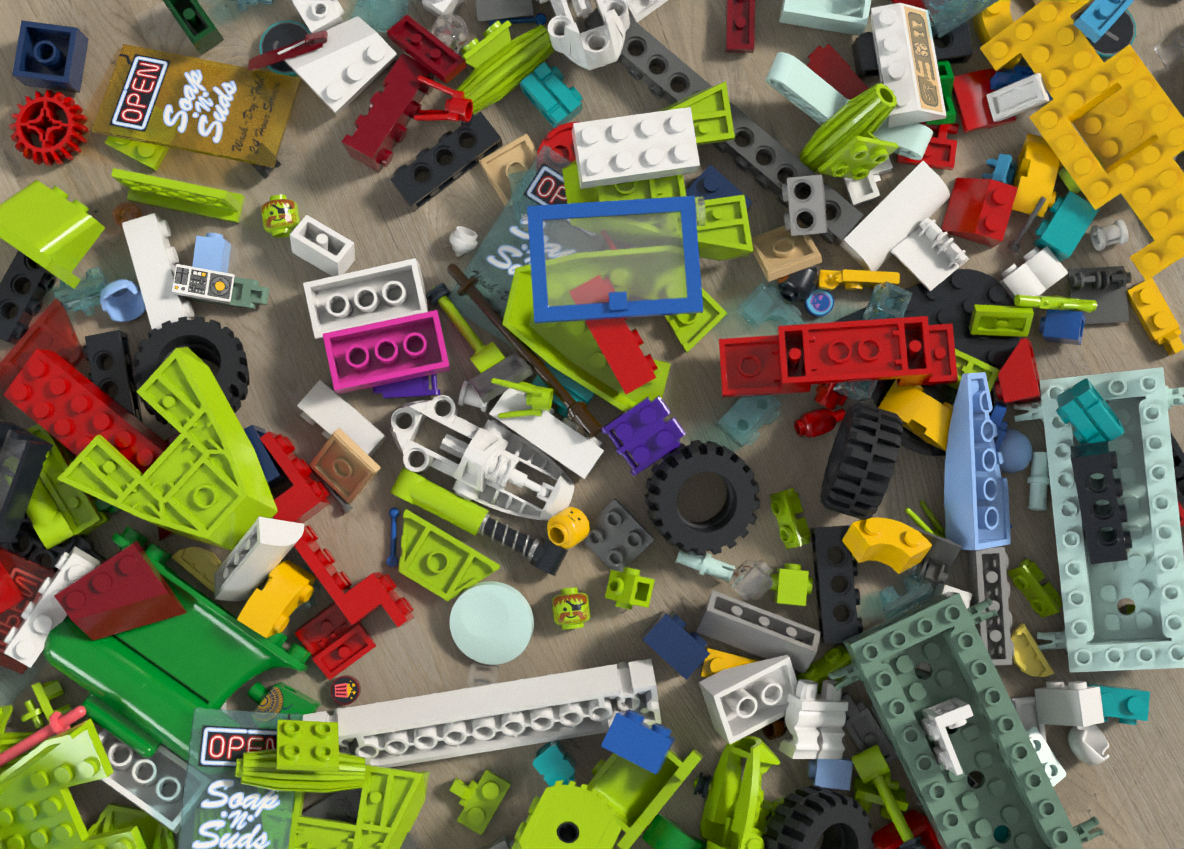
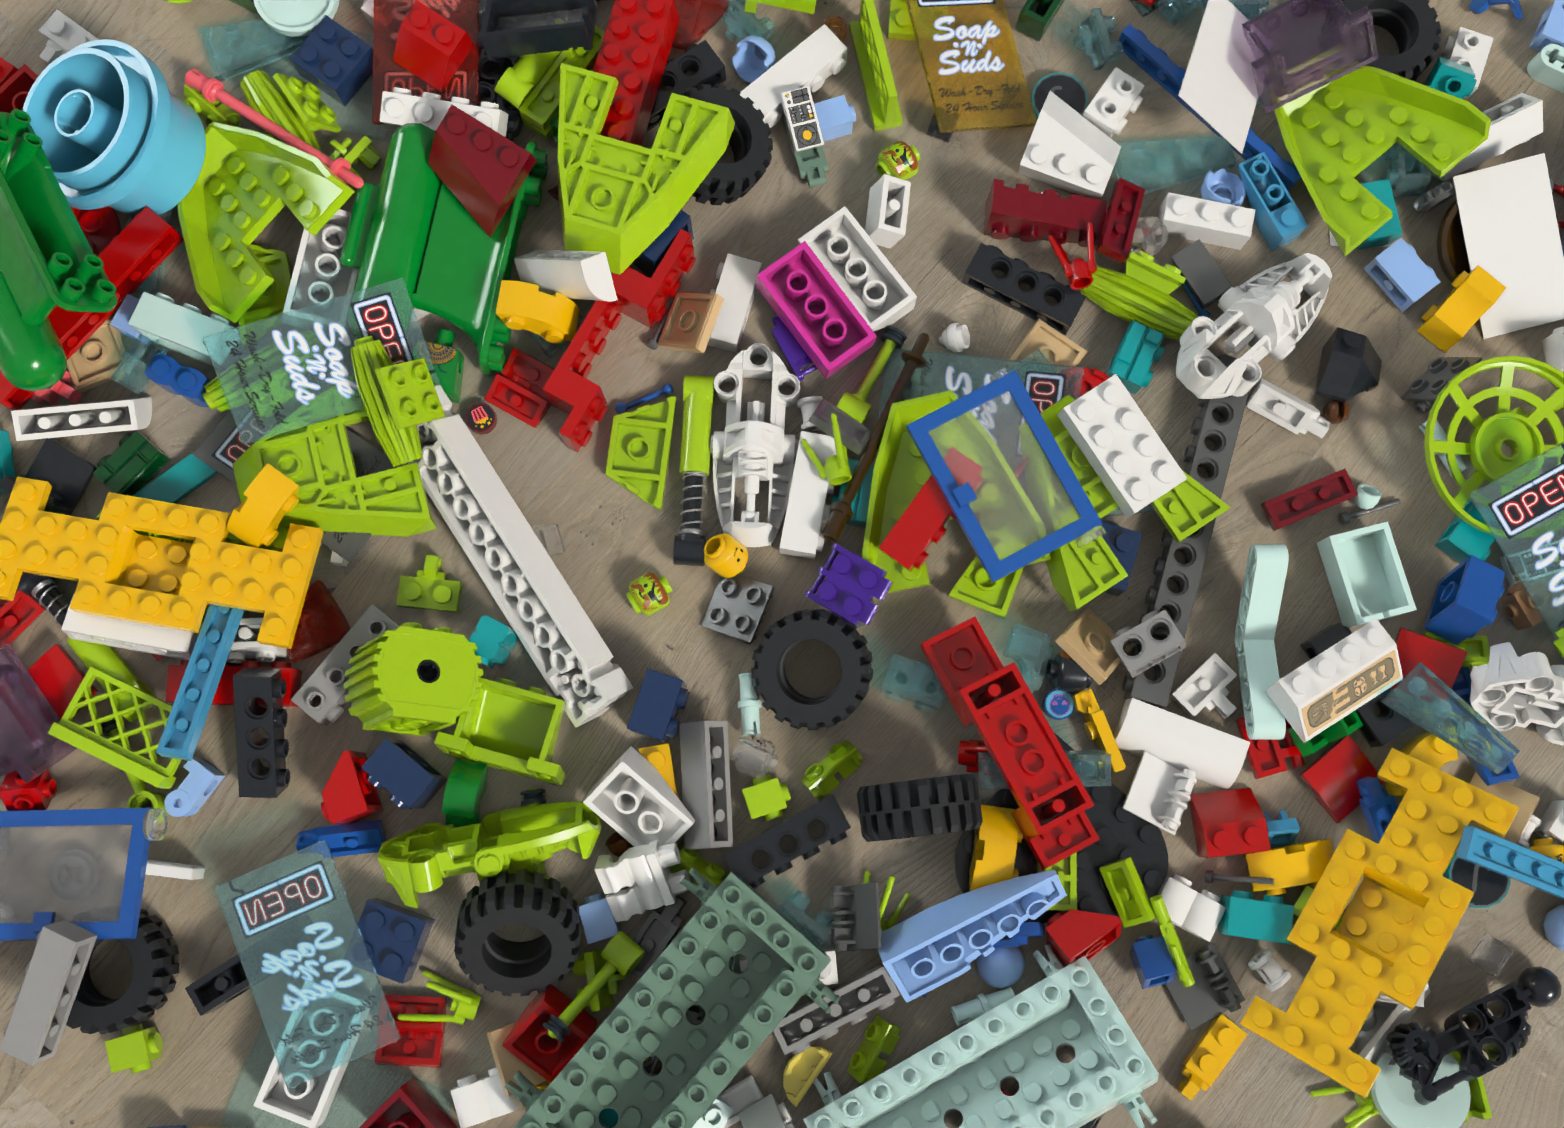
camera: 65 degrees right, 5 degrees down
(199, 563) = (542, 233): light yellow plate -> none
(272, 57) = (1081, 120): dark red piece -> none
(491, 622) = (602, 524): light aqua piece -> none
(624, 585) = (692, 639): lime brick -> none
(638, 741) = (545, 704): blue brick -> none
(817, 422) = (939, 753): red plant -> none
(836, 72) = (1292, 625): red piece -> none
(846, 140) = (1228, 653): lime plate -> none
(886, 542) = (850, 871): yellow brick -> none
(951, 714) = (704, 1006): white bracket -> none
(1017, 97) = (1361, 809): white tile -> none
(1088, 414) = (1072, 1018): teal brick -> none
(1102, 545) = (947, 1092): black brick -> none

